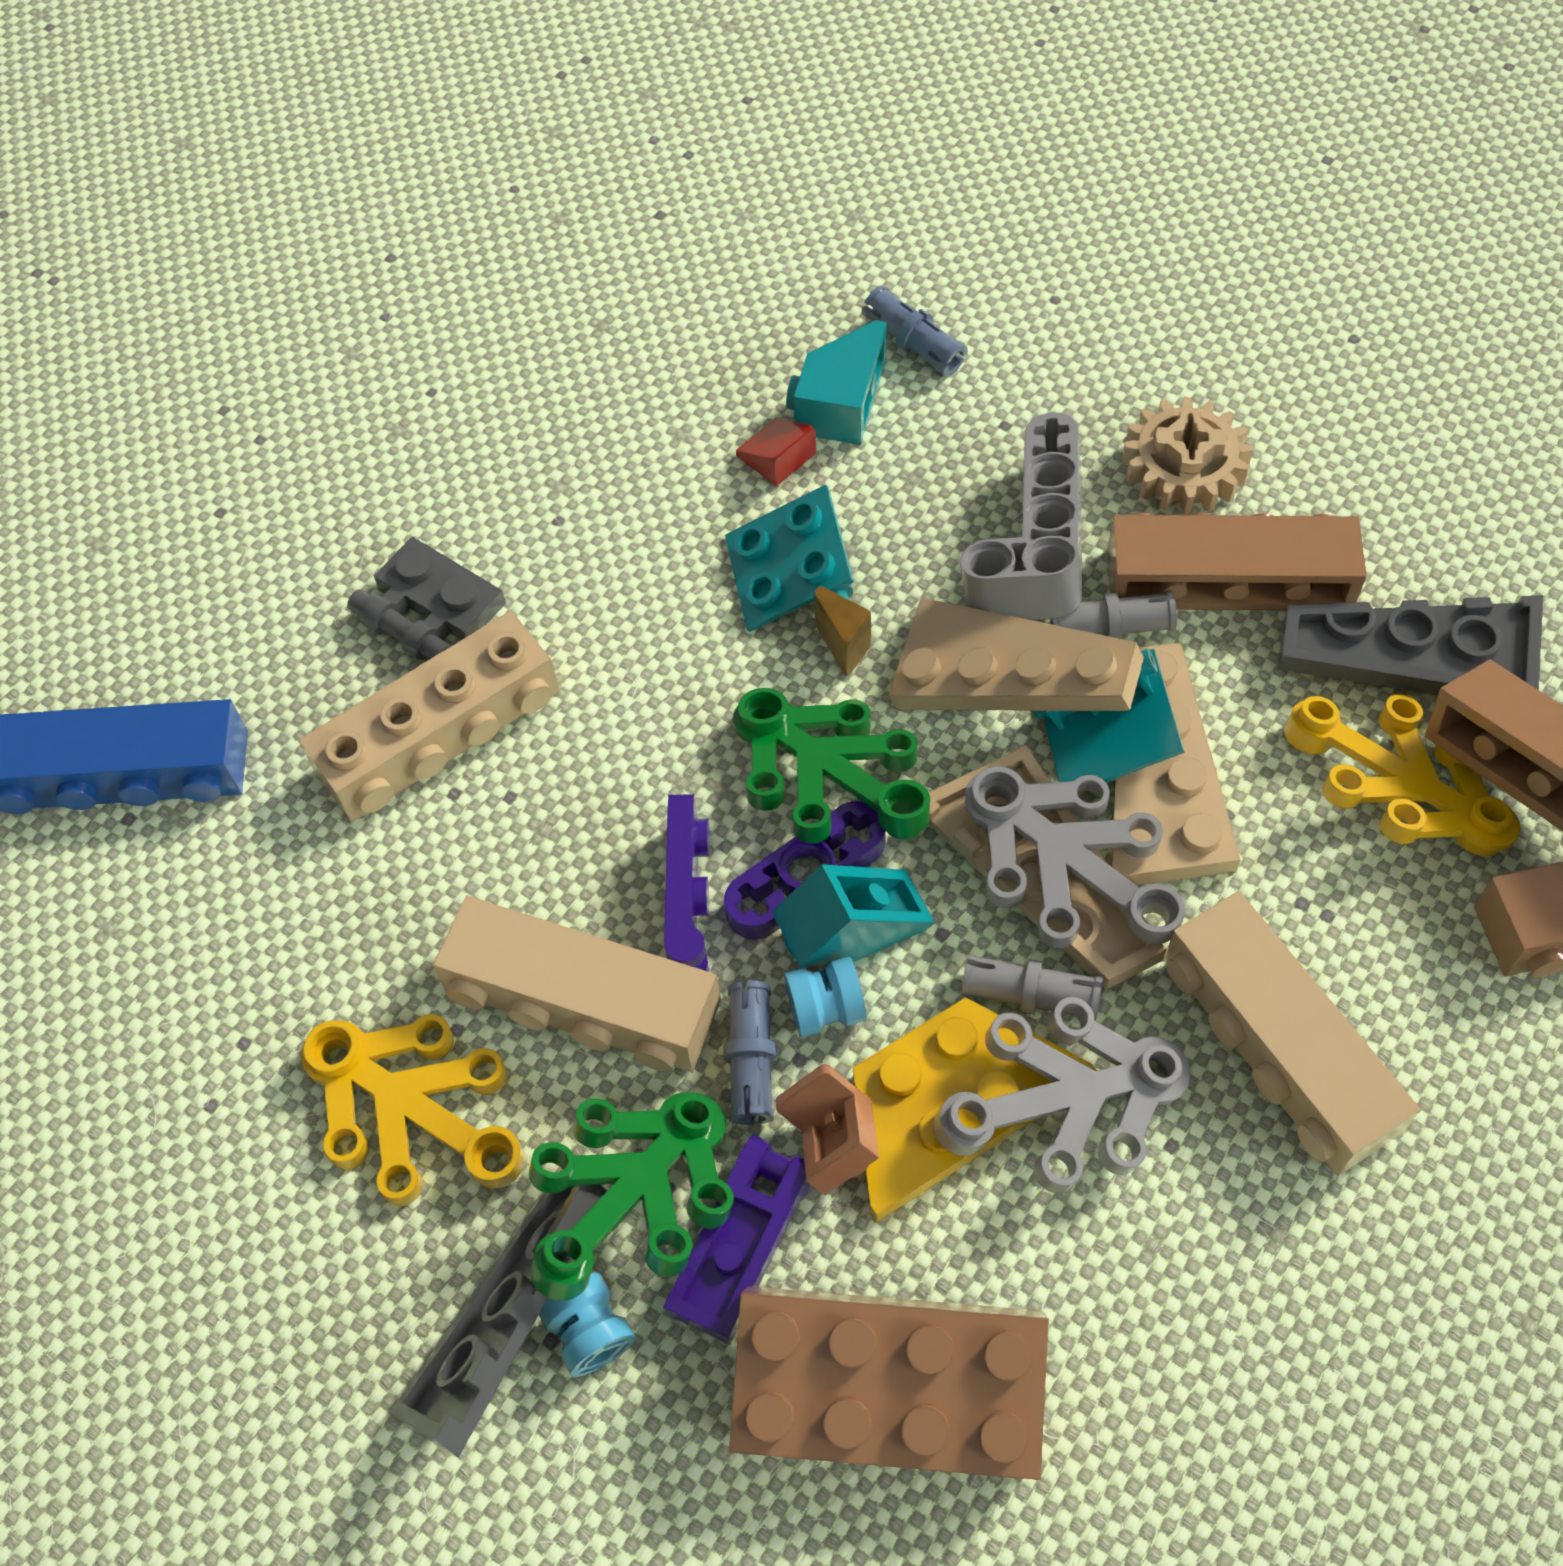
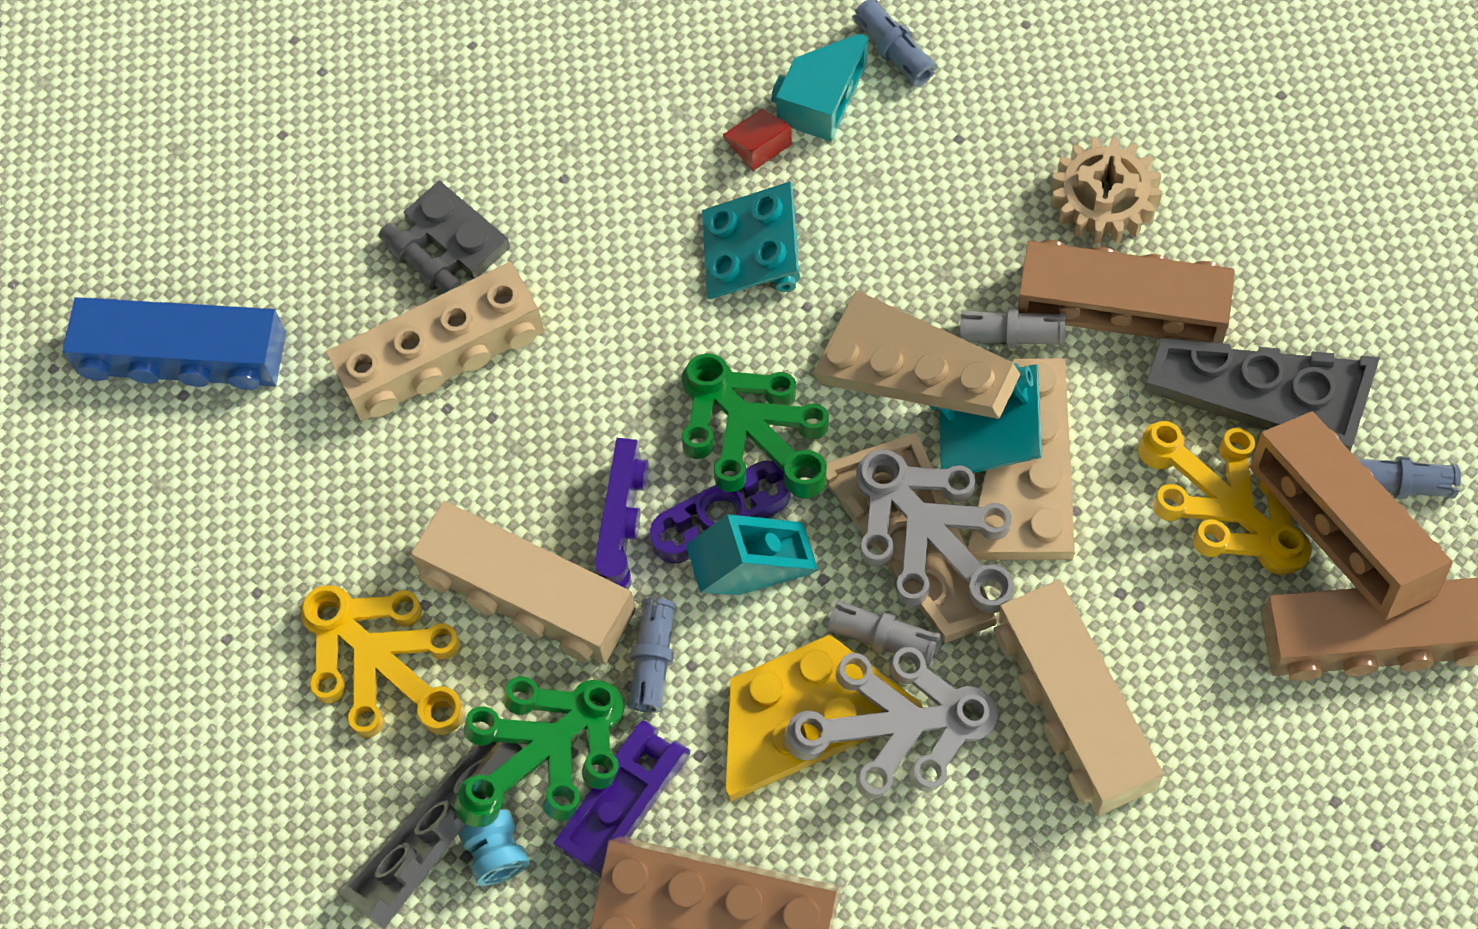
camera: 10 degrees right, 5 degrees up
(825, 997) = (717, 619): medium azure wheel -> none
(834, 1127) = (707, 721): nougat bracket -> none
(843, 627) = (786, 308): pearl gold slope -> none
(1043, 568) = (961, 280): light grey beam -> none

